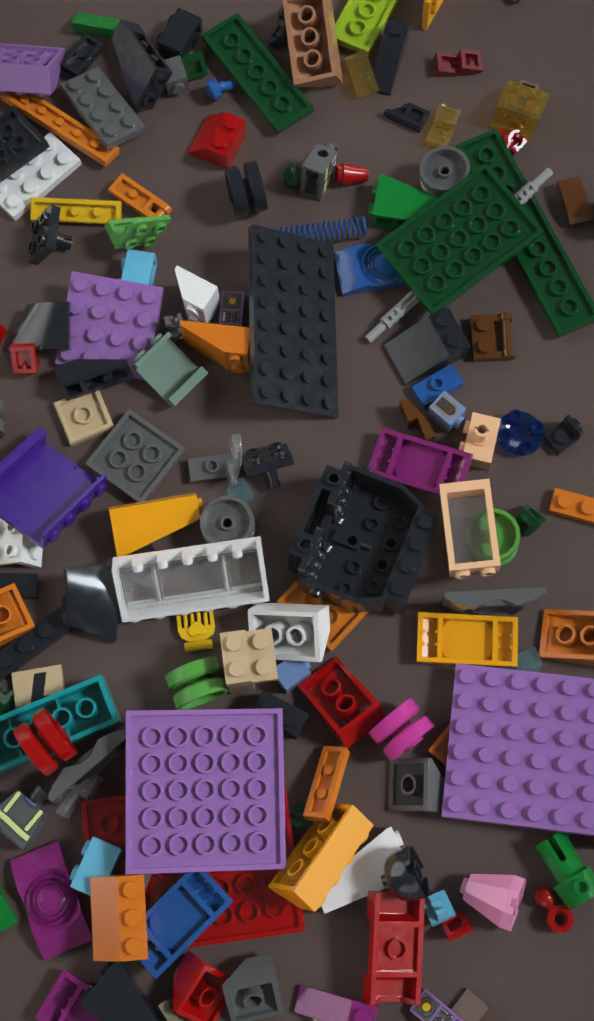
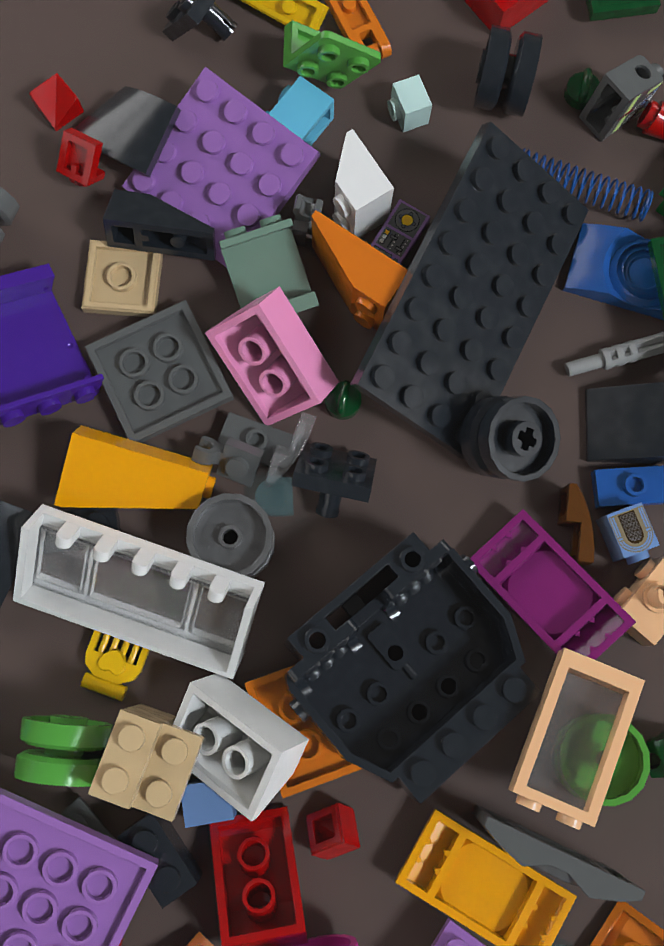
camera: 20 degrees right, 5 degrees up
(198, 234) = (409, 103): none -> light aqua plate
(198, 415) = (273, 357): none -> bright pink slope
(207, 483) = (234, 459): none -> dark grey plate
(249, 420) = (343, 401): none -> dark green tile
(354, 391) = (510, 437): none -> black wheel
(369, 655) = (332, 831): none -> red slope

